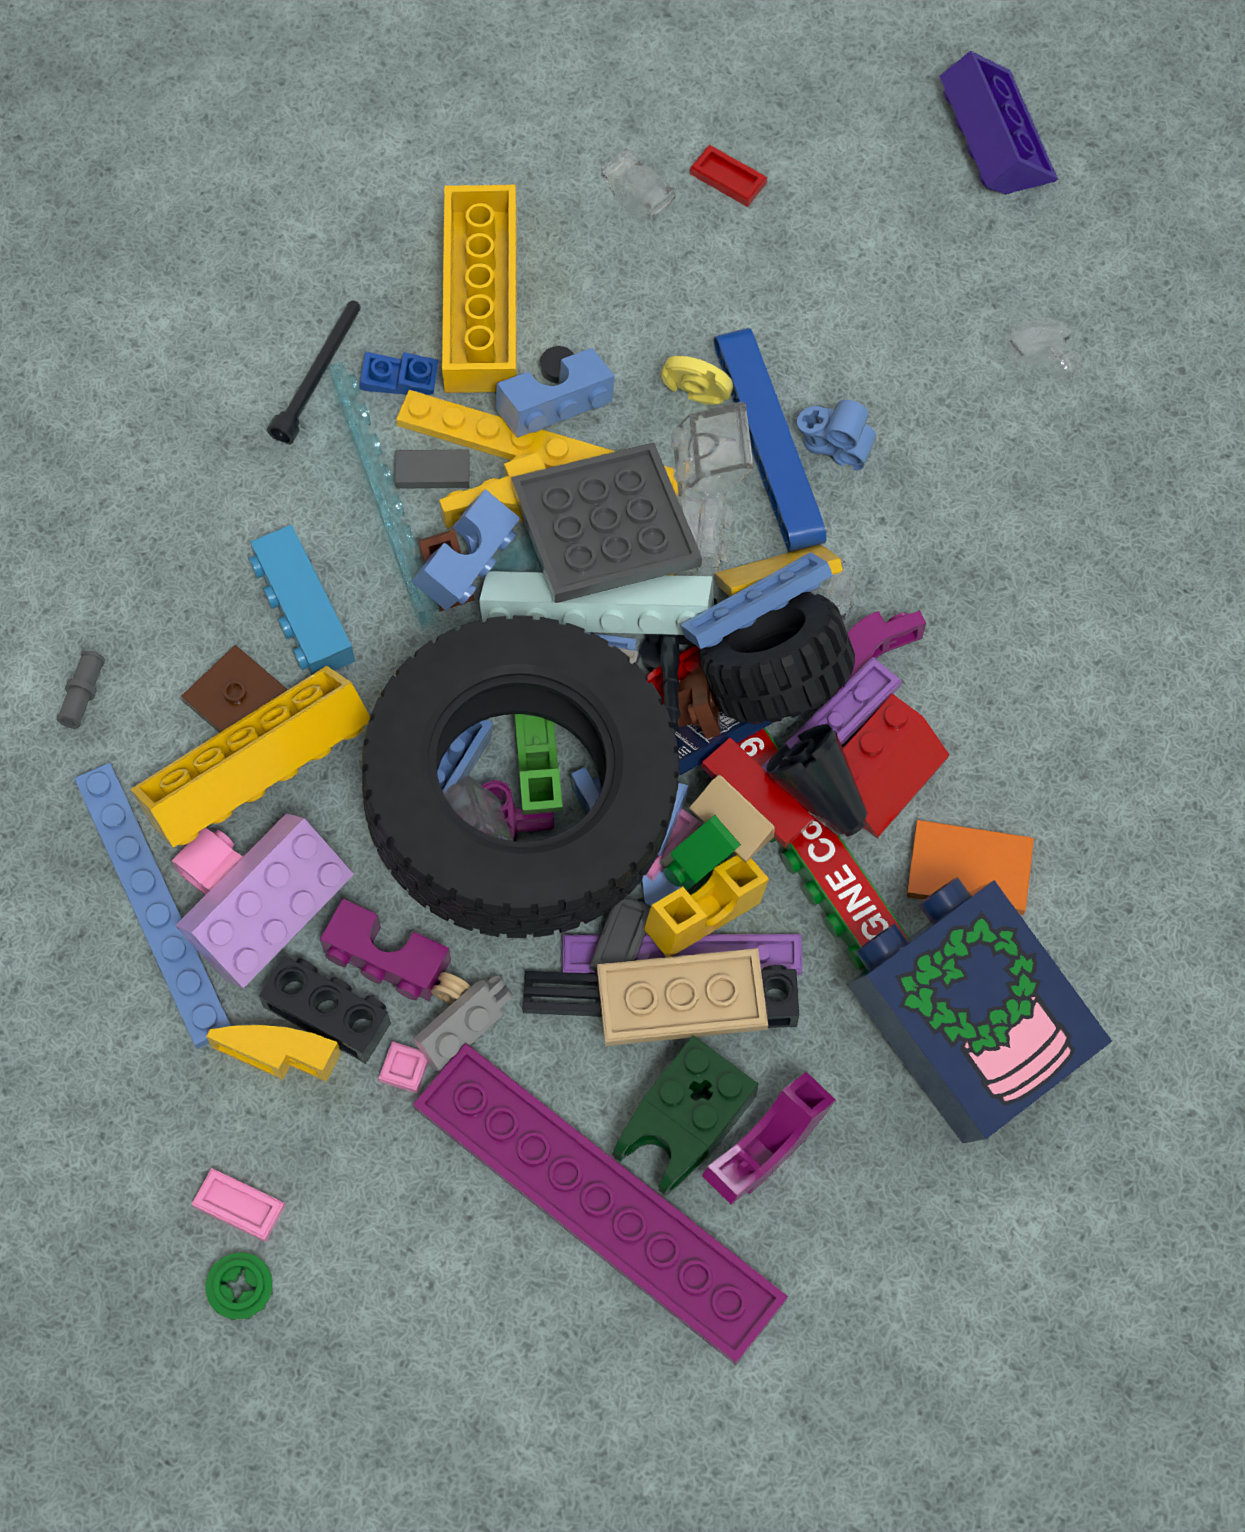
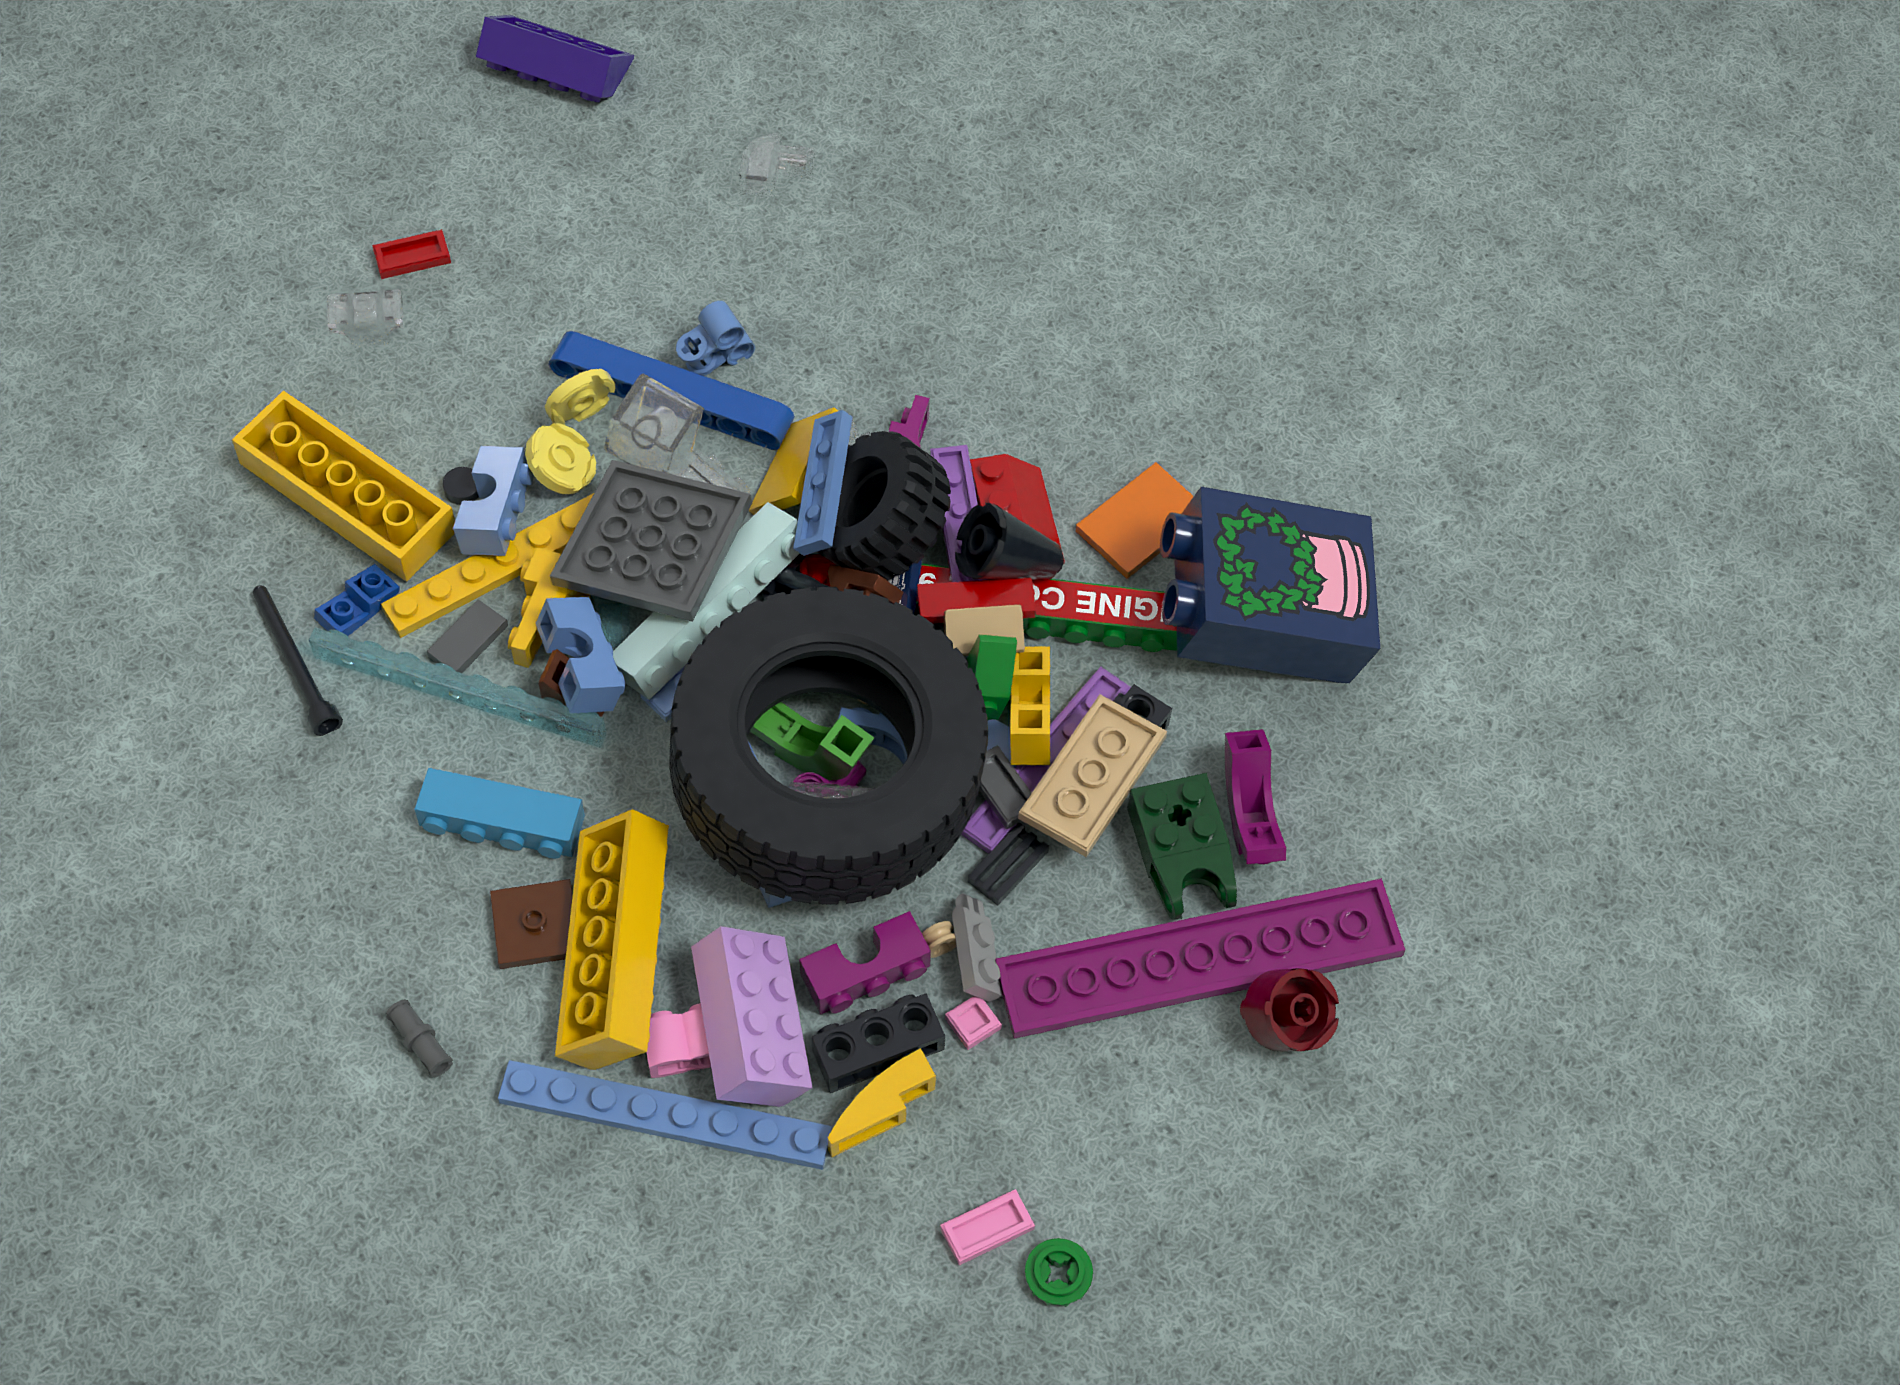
camera: 55 degrees left, 5 degrees down
(602, 1281) = (1291, 1009): none -> dark red brick
(634, 409) = (560, 458): none -> light yellow tile

